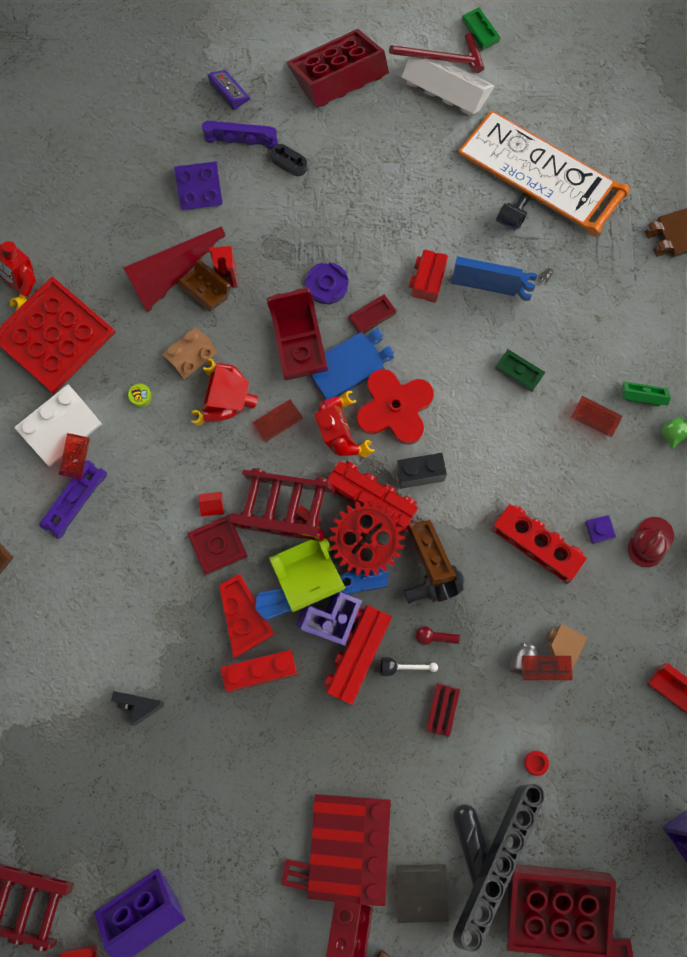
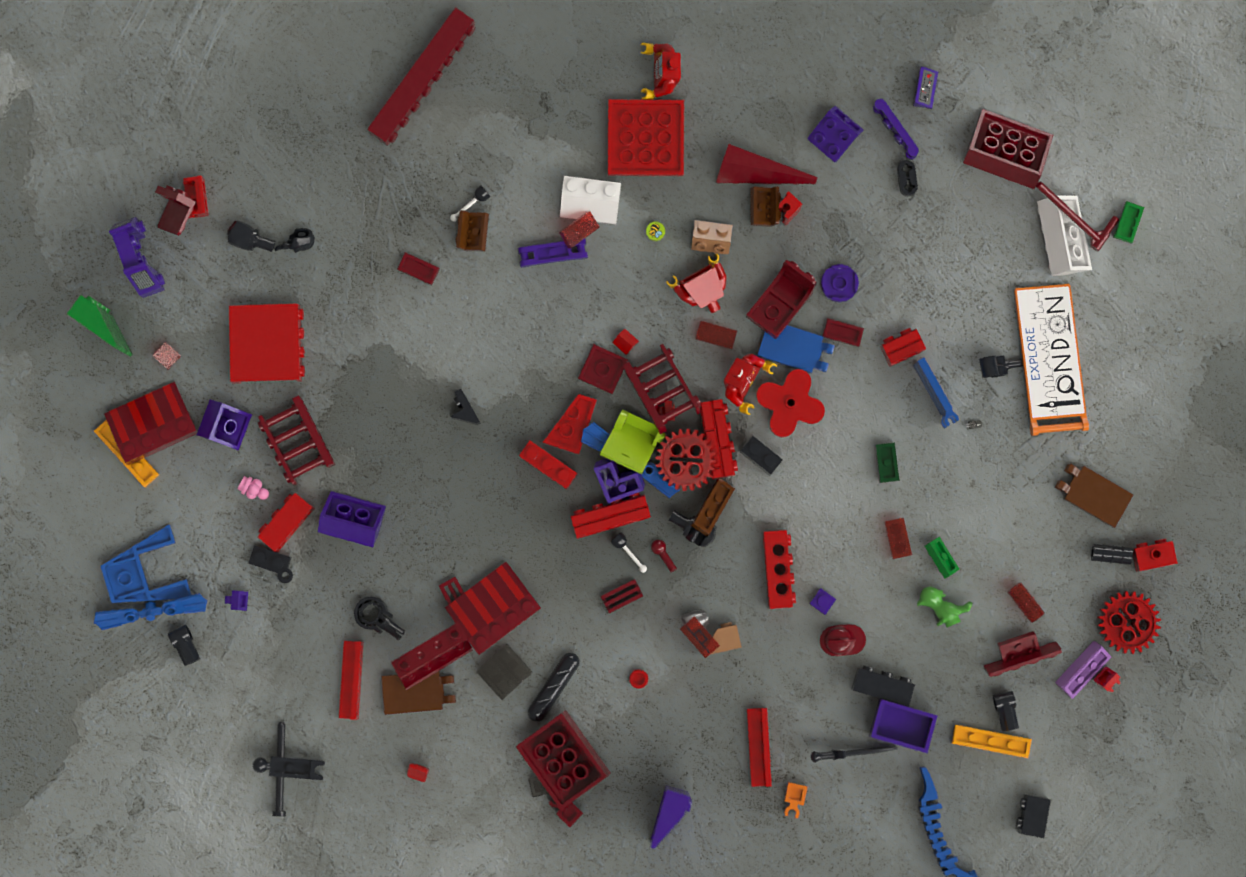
camera: 50 degrees right, 10 degrees up
(489, 872) = (549, 701): black beam -> none

